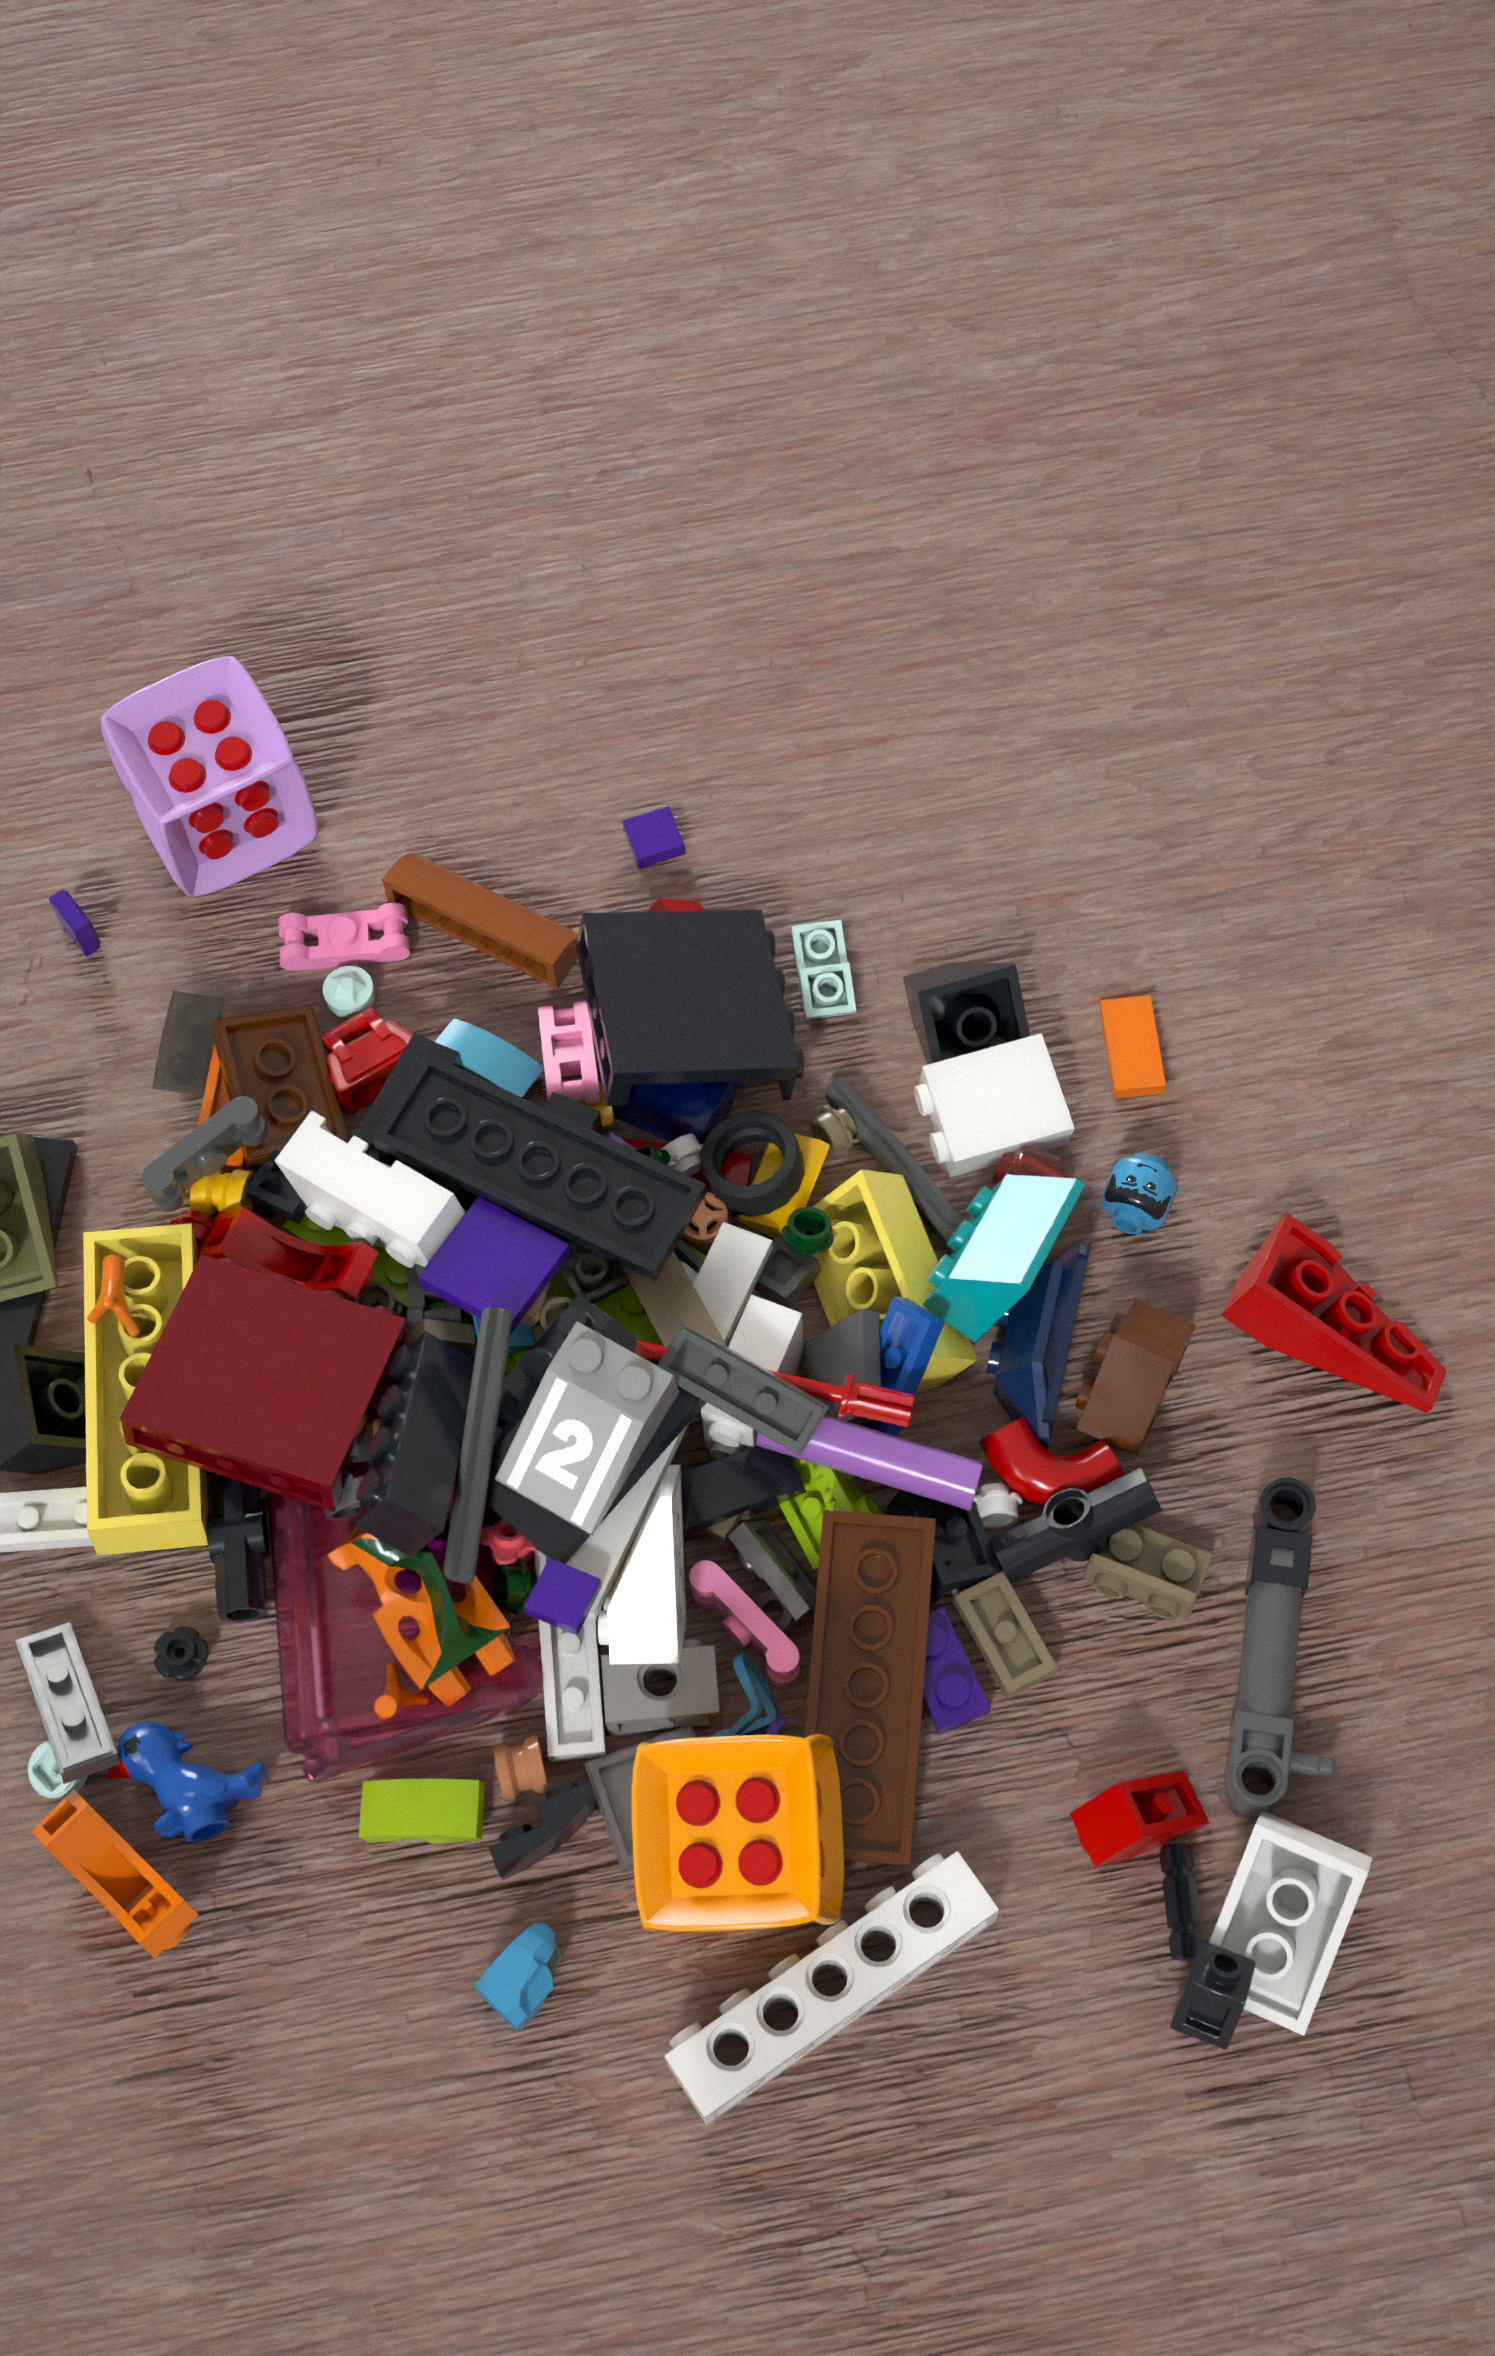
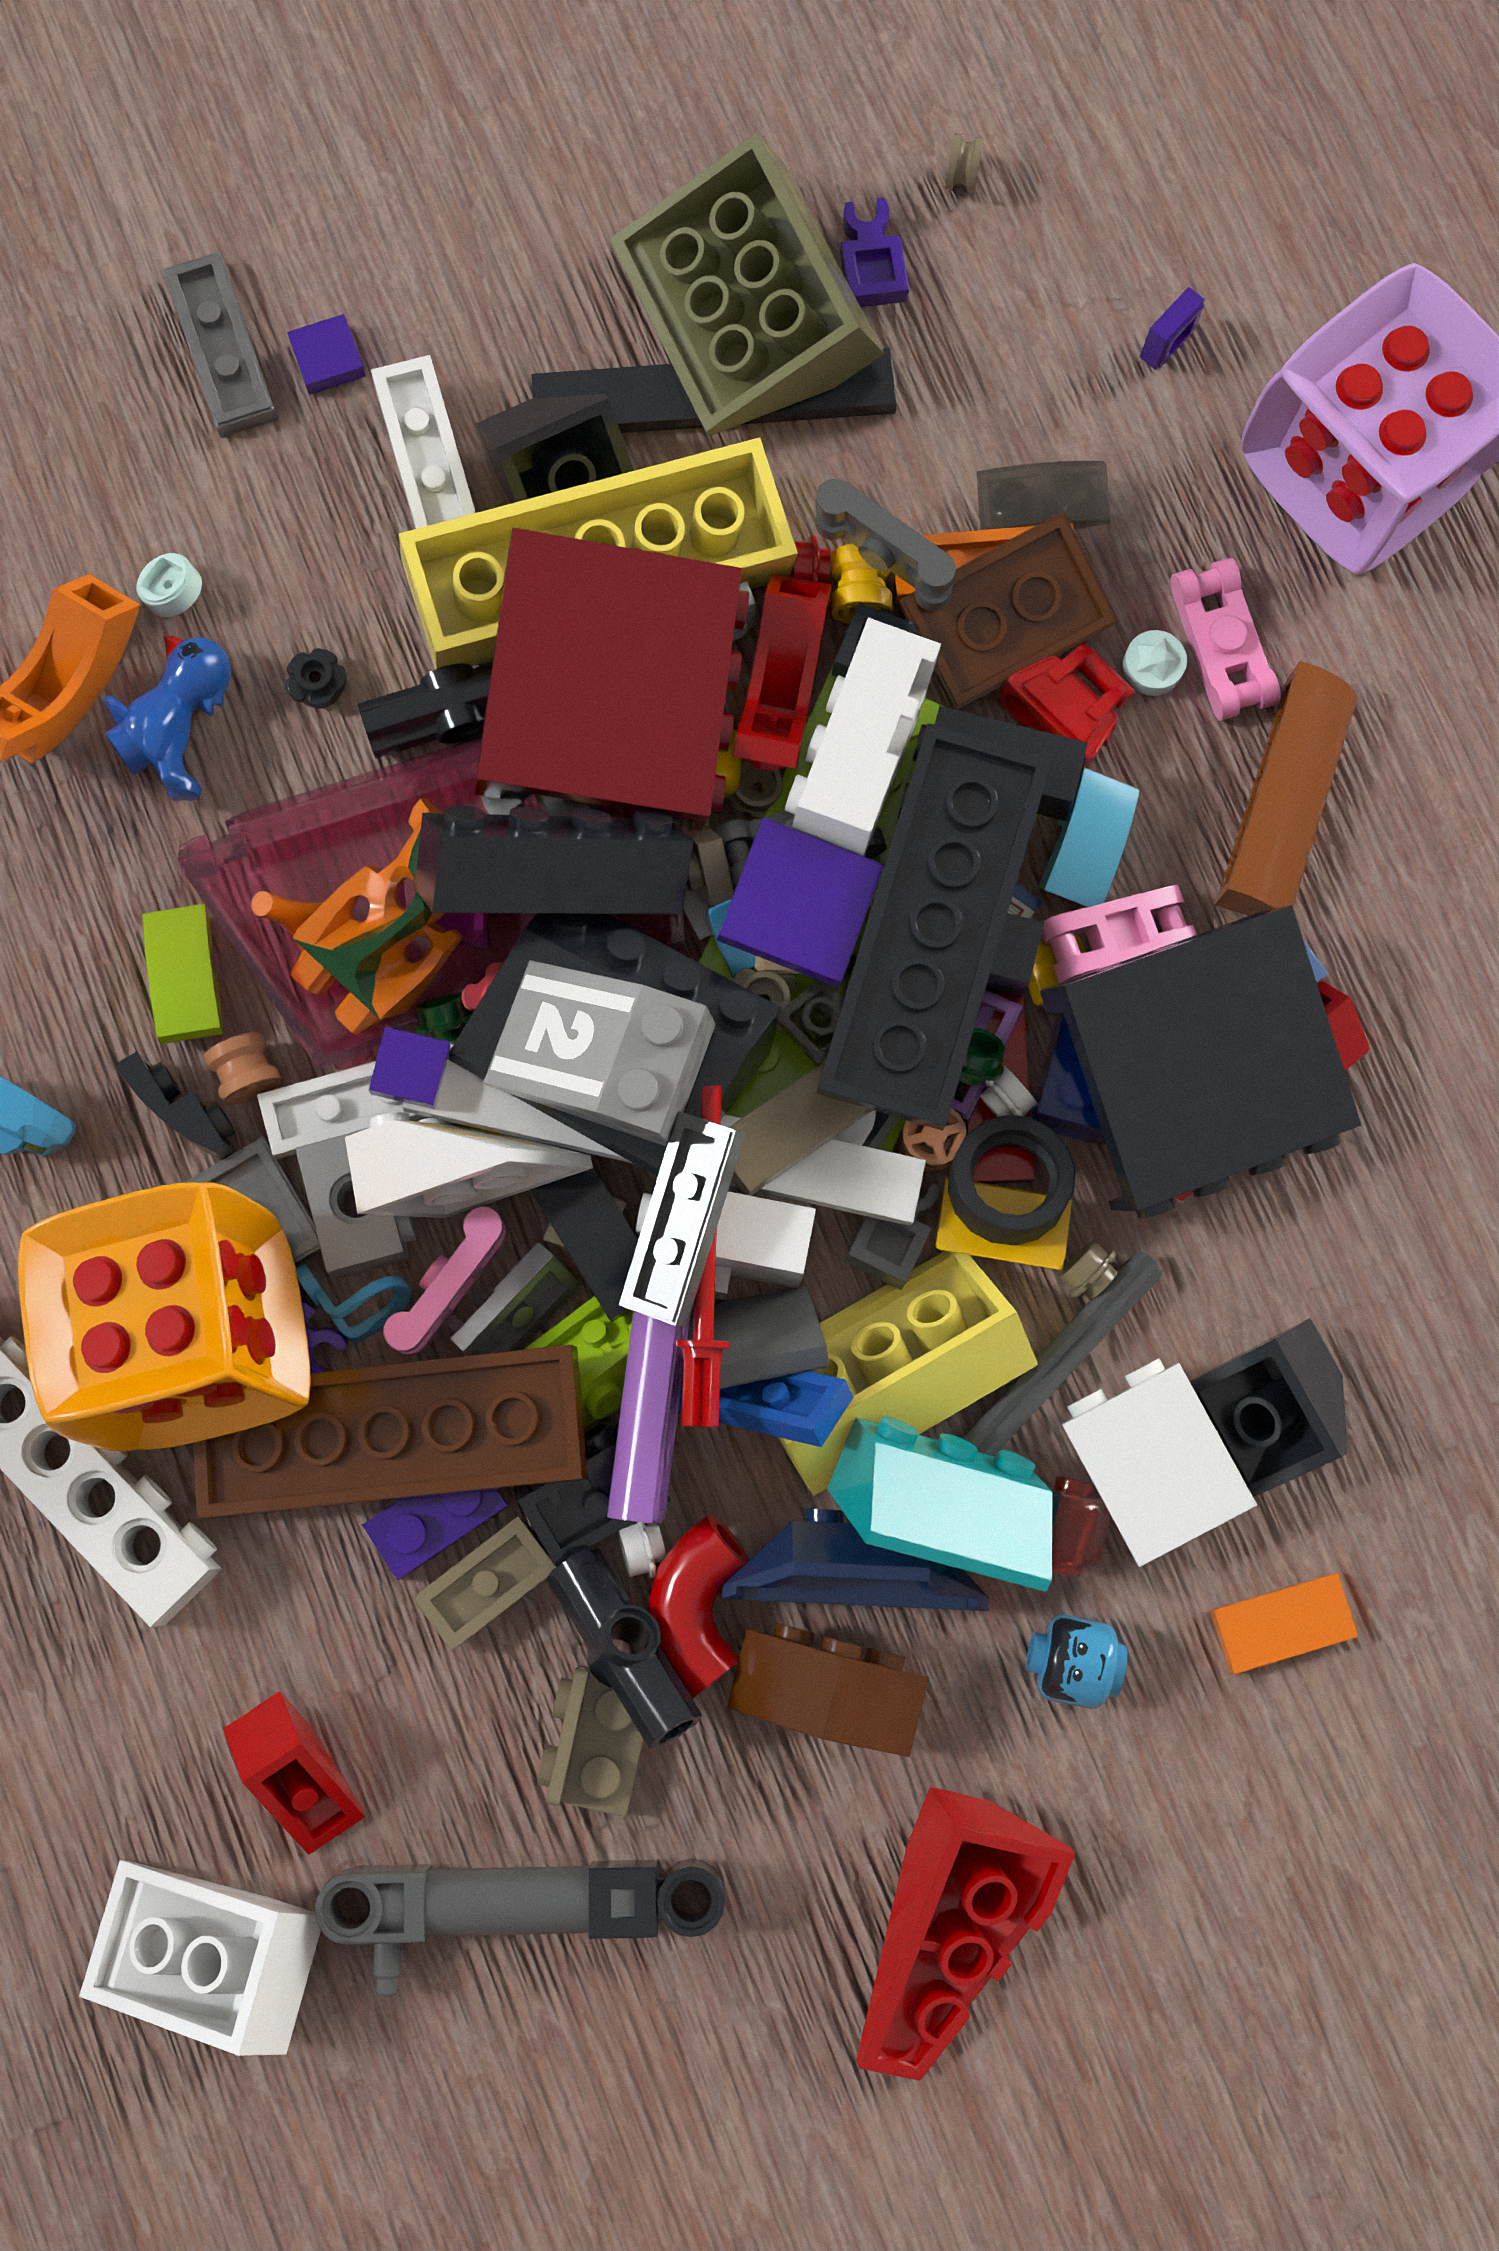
camera: 70 degrees right, 15 degrees up
(67, 1703) = (234, 573): tile -> none
(113, 1295) = (682, 487): orange bar -> none
(477, 1445) = (565, 931): dark grey axle -> none
(653, 837) = (1448, 975): dark purple tile -> none
(808, 1231) = (949, 1263): dark green plate -> none
(823, 969) = (1306, 1219): light aqua slope -> none
(1180, 1900) = (208, 1835): black axle -> none
(1213, 1995) = (104, 1888): black bracket -> none

